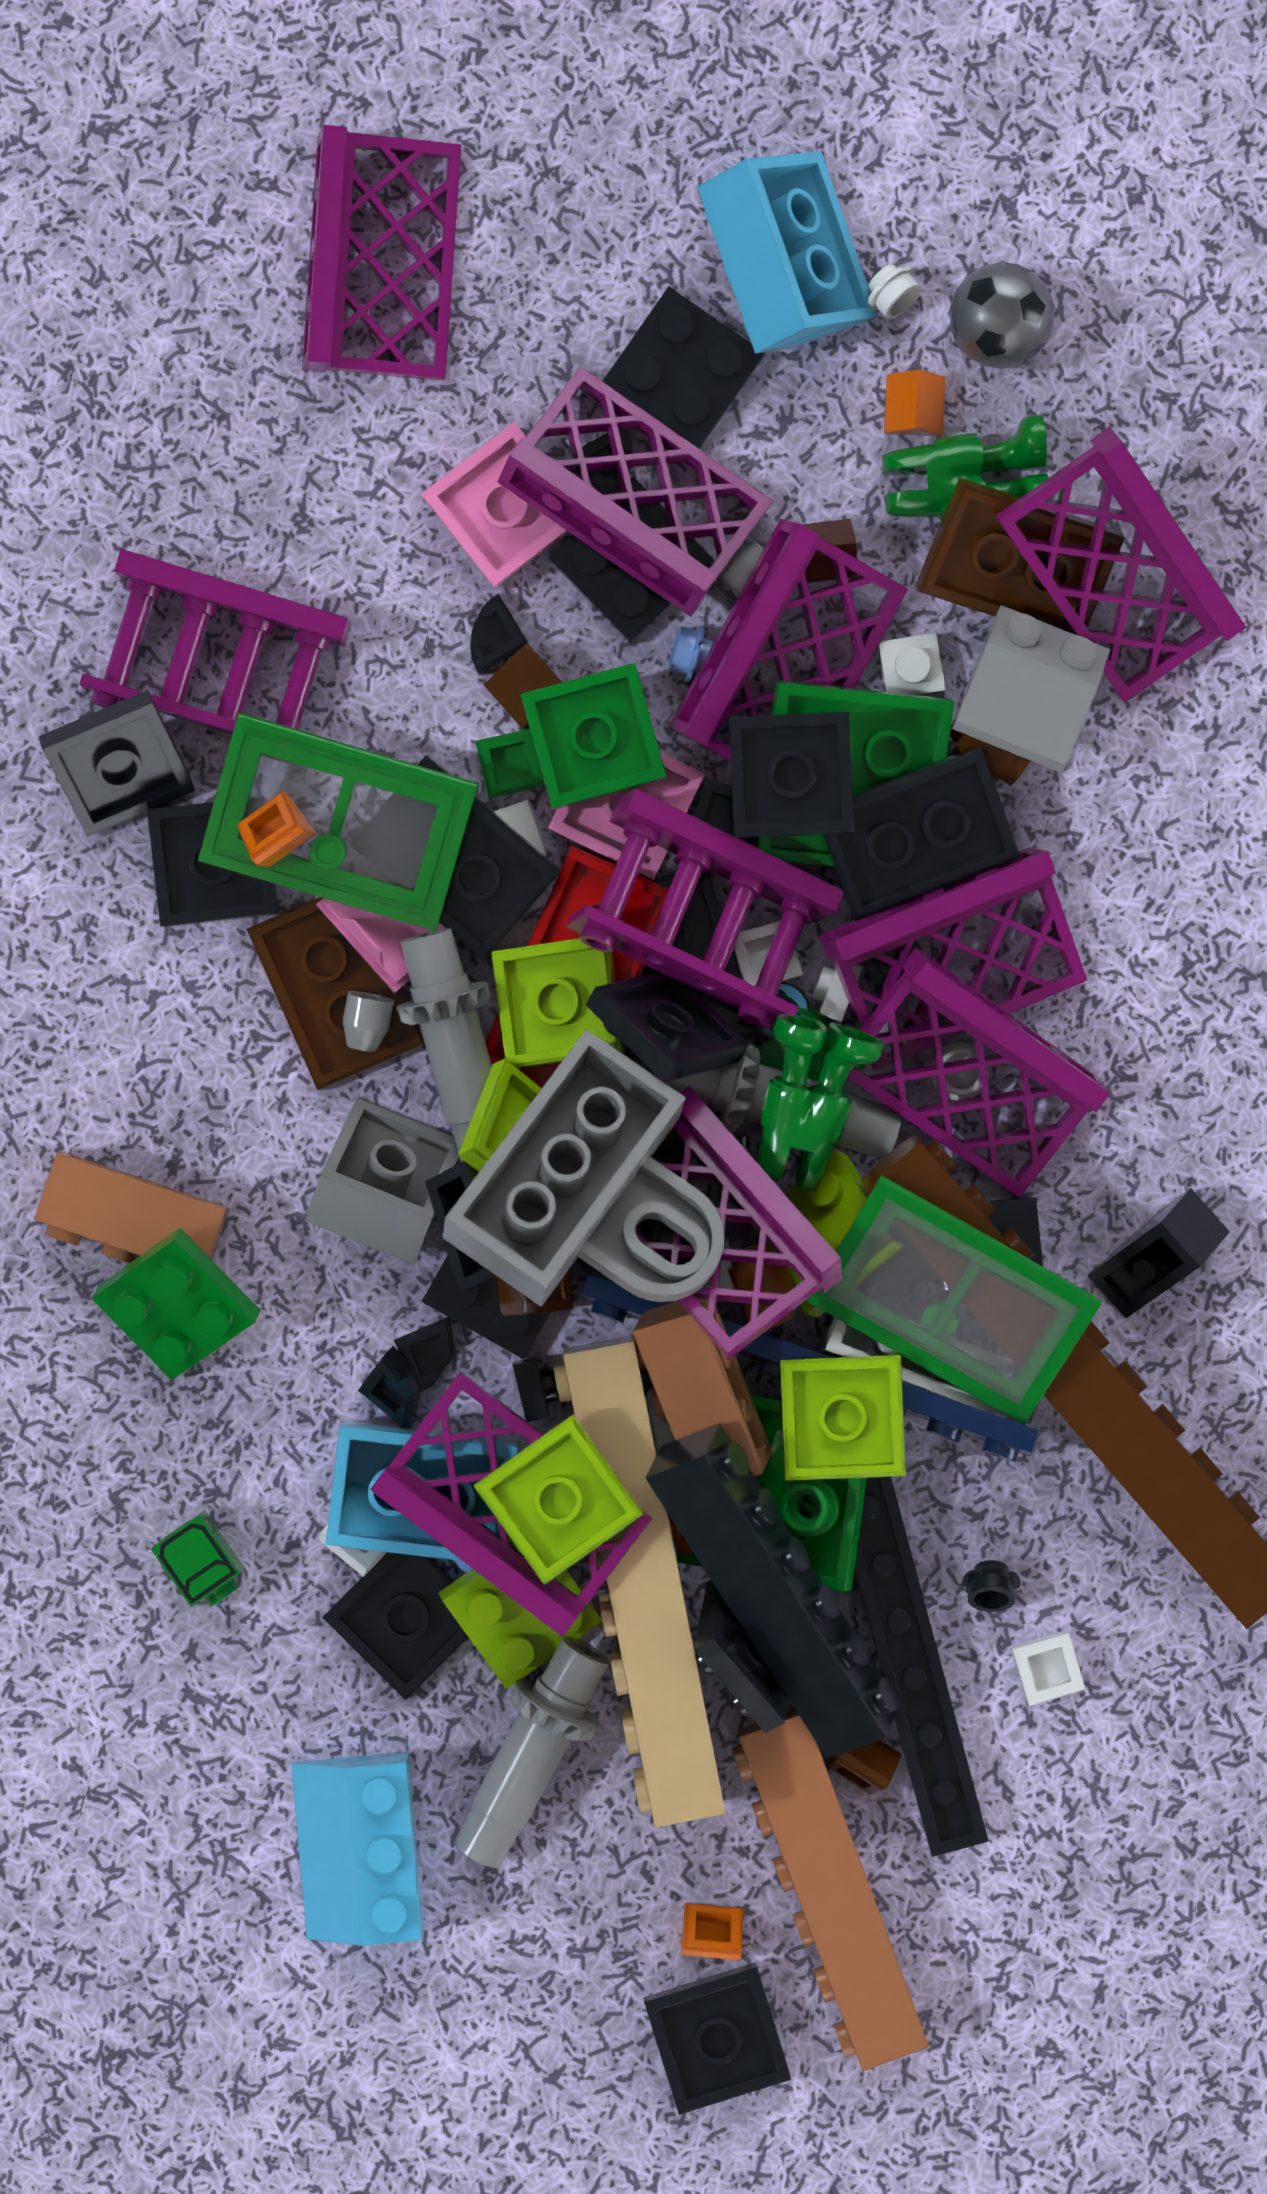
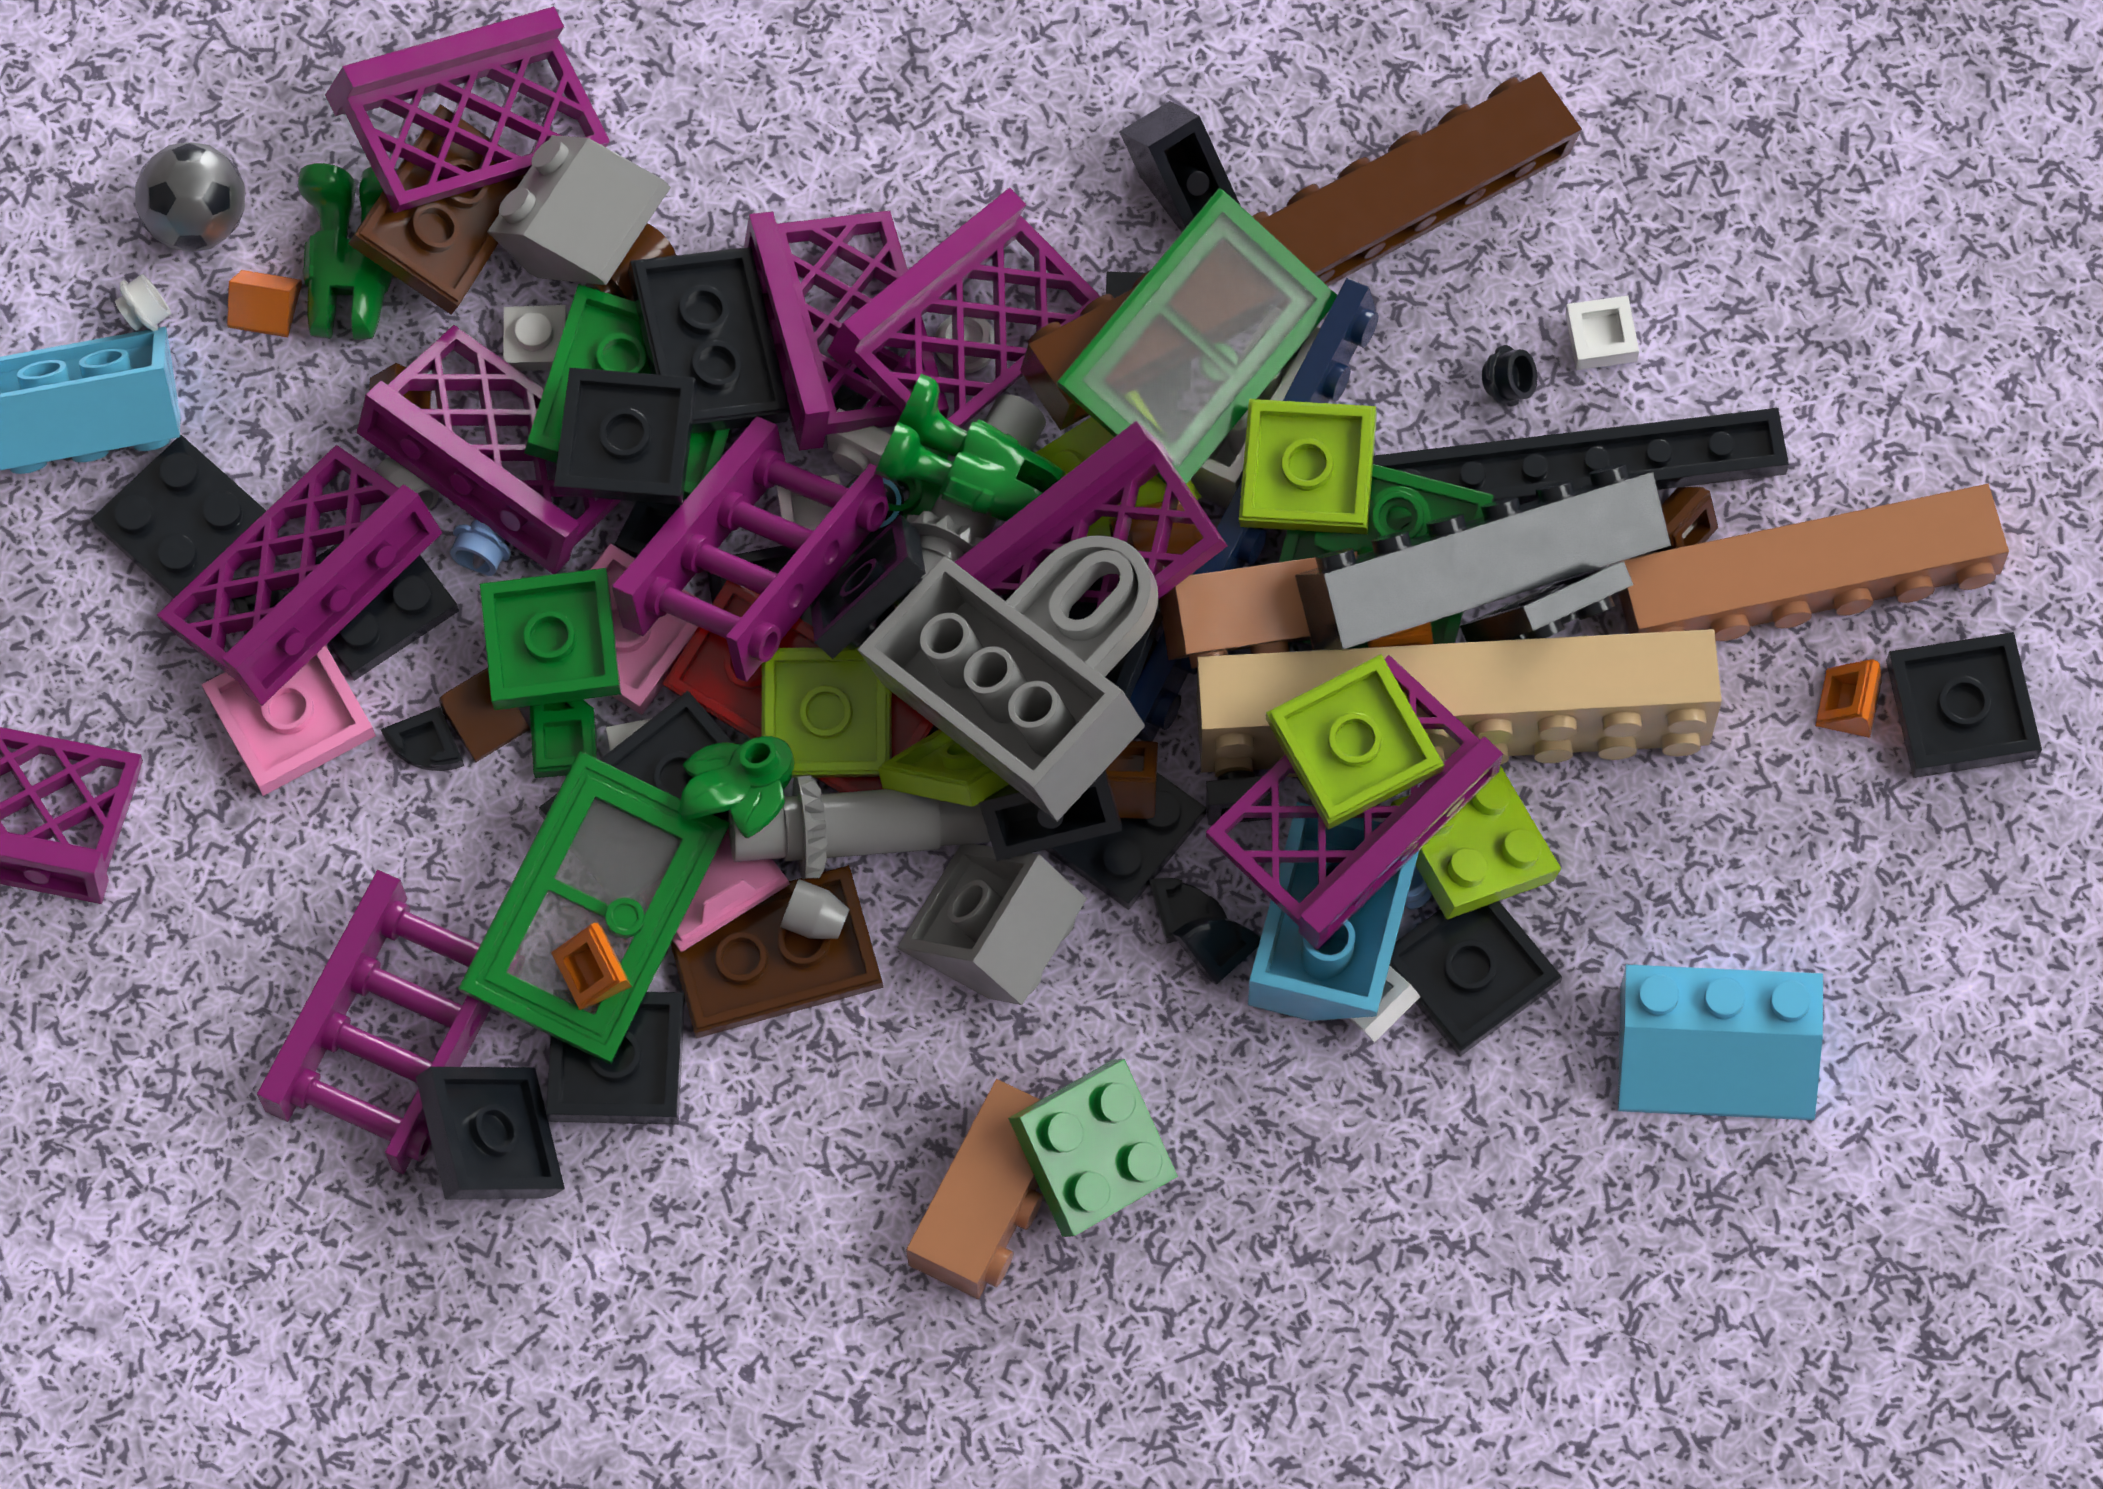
camera: 80 degrees left, 20 degrees down
(199, 1561) = (1380, 1168): green brick -> none
(461, 929) = (739, 779): none -> green plate
(549, 1719) = (1630, 845): light grey gear -> none

